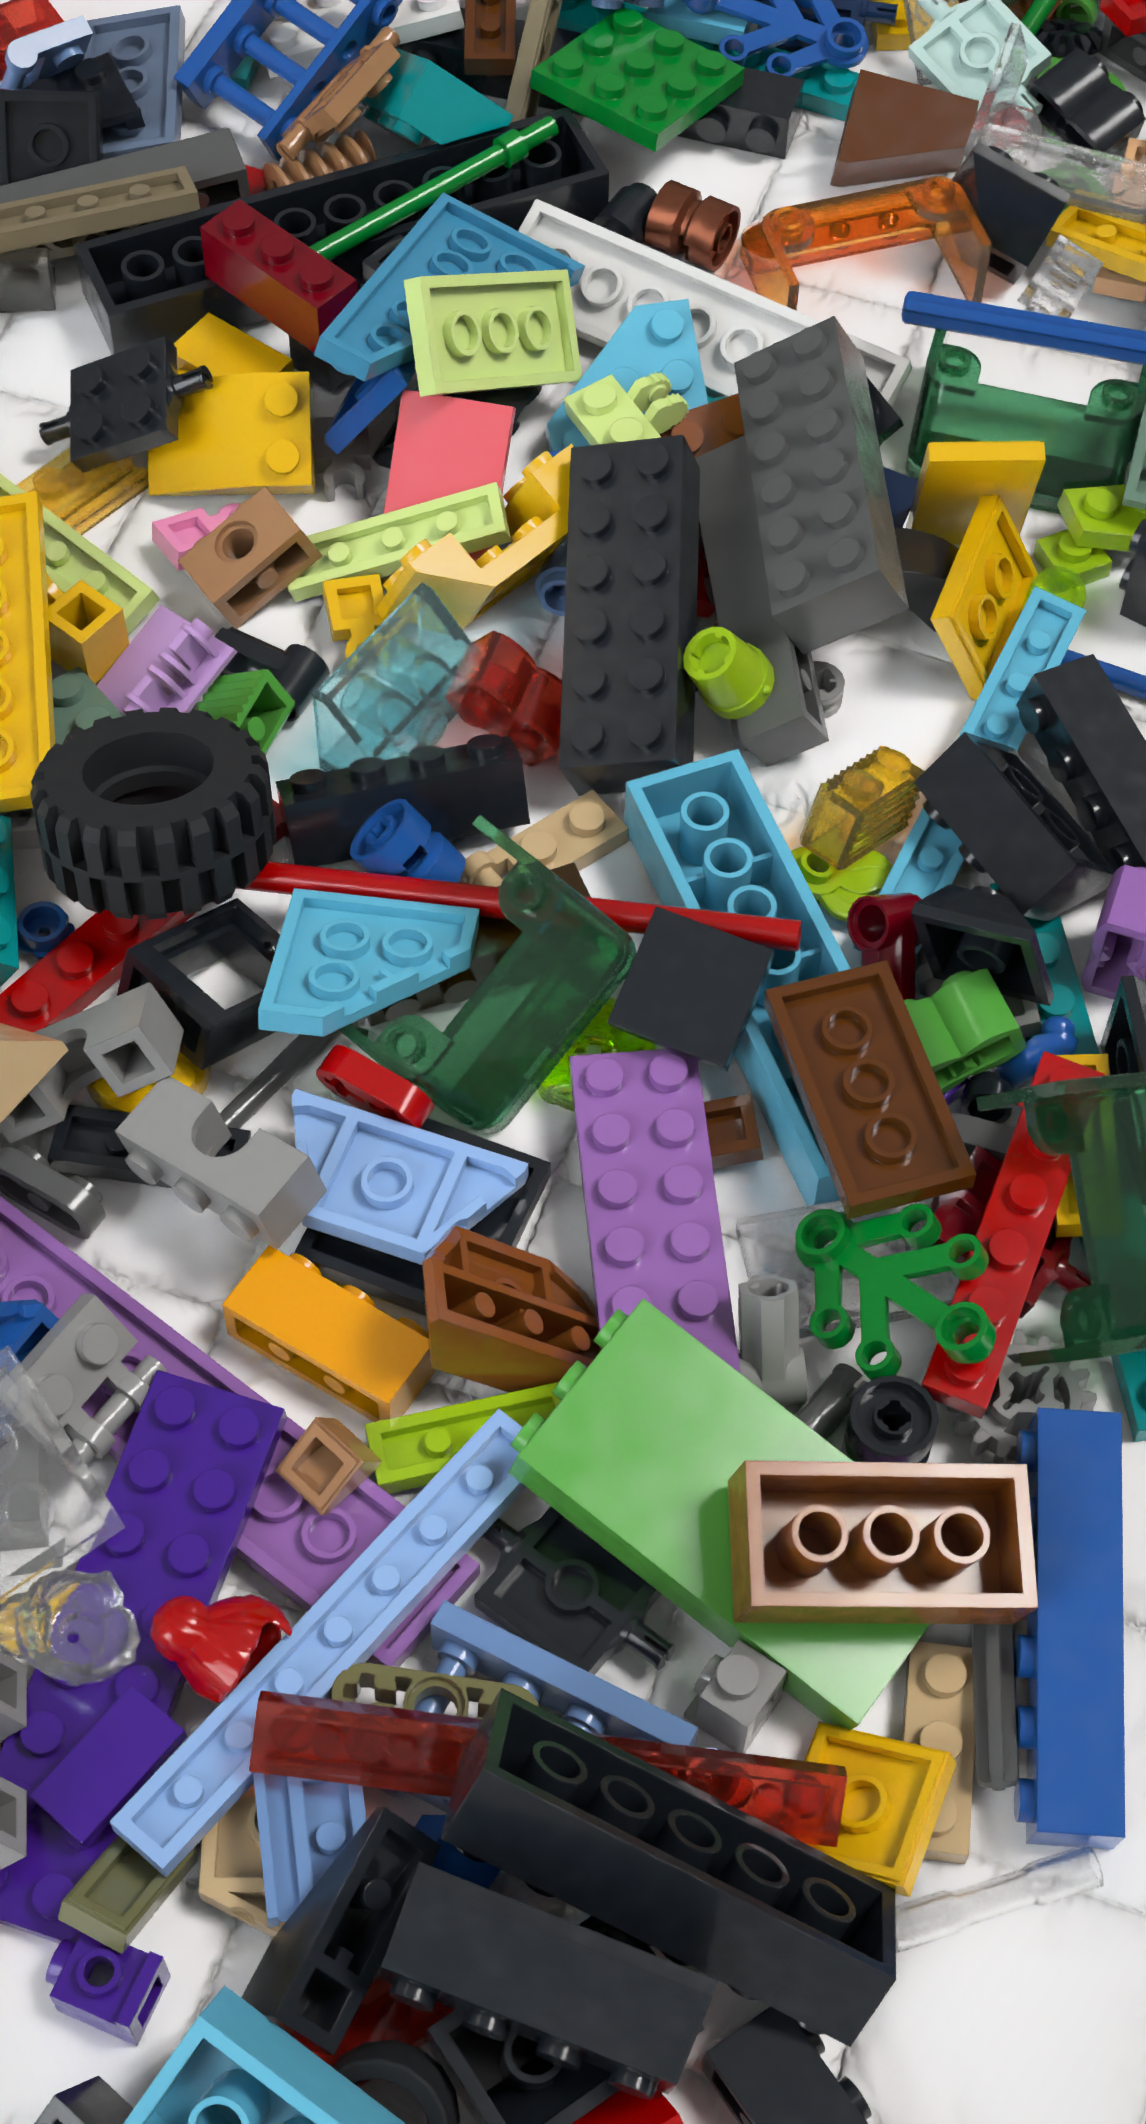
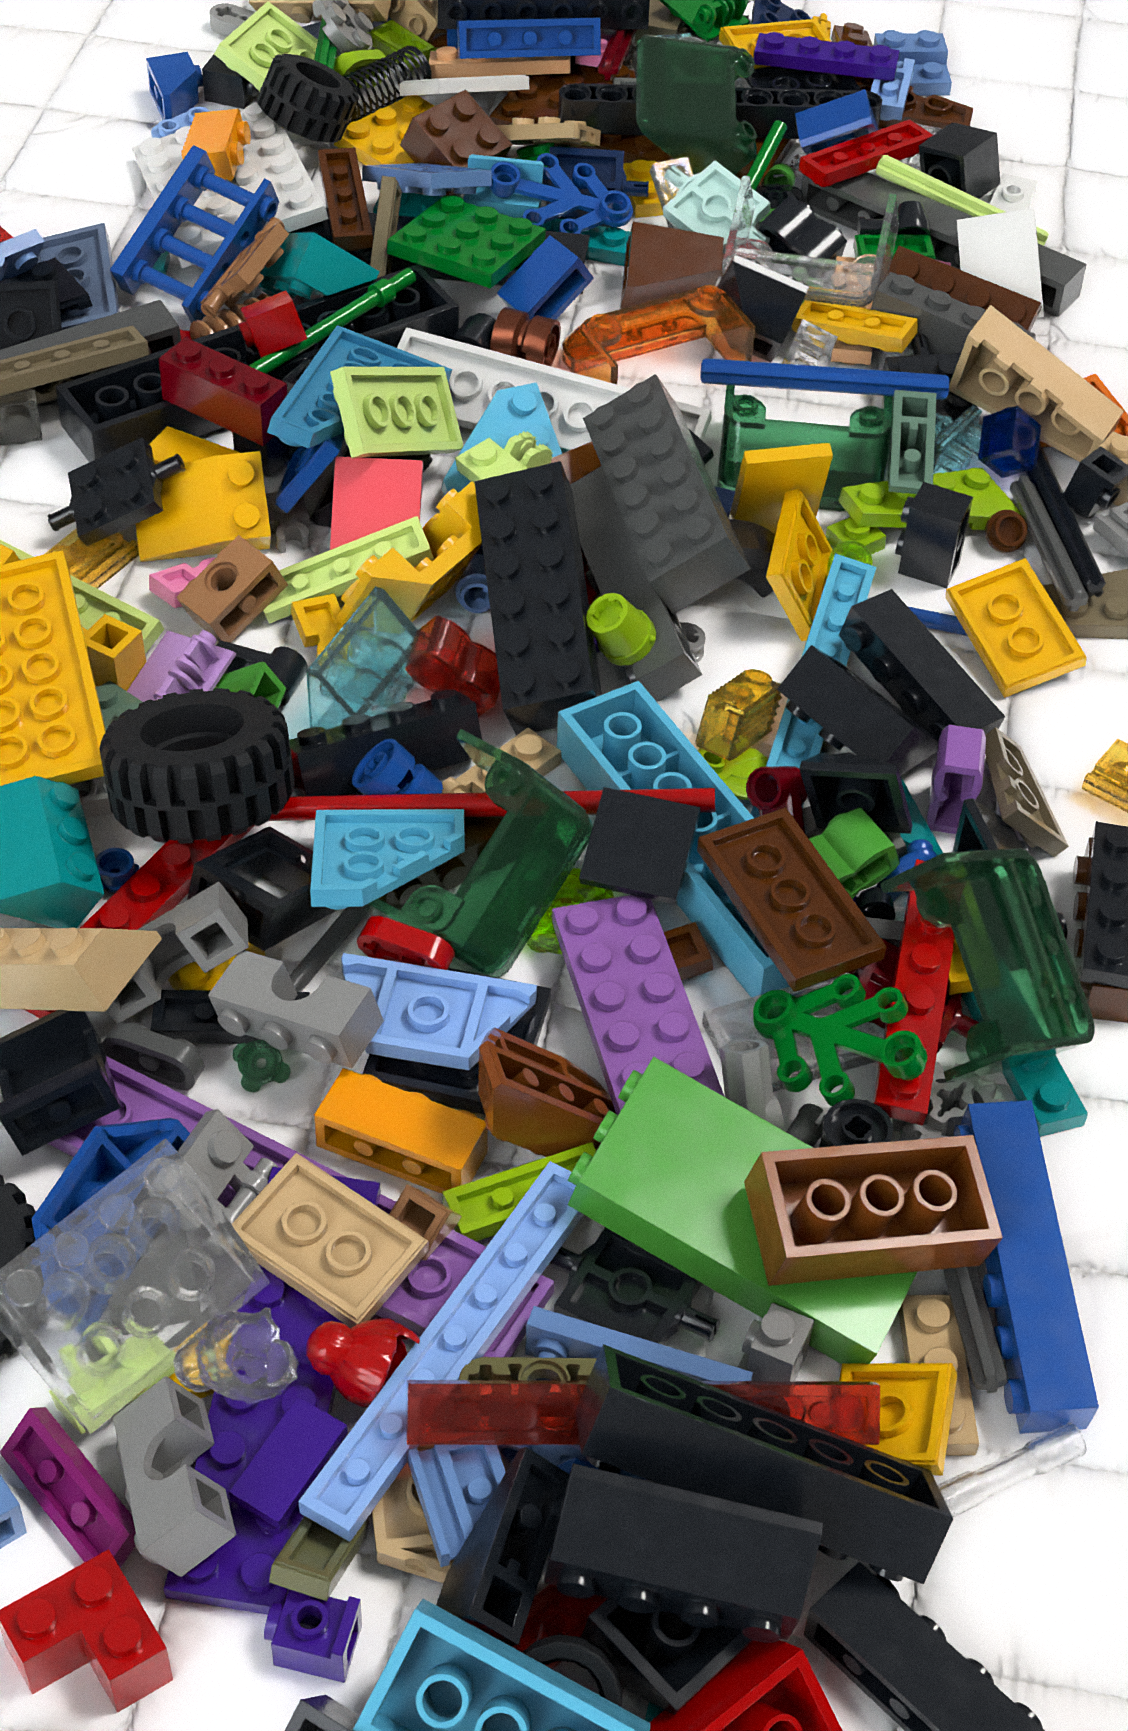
camera: 10 degrees left, 10 degrees down
(167, 1233) = (254, 1077): none -> clear green plate
(203, 1483) = (328, 1241): none -> tan tile
(356, 186) = (272, 324): none -> red brick
(731, 147) = (546, 281): none -> blue brick

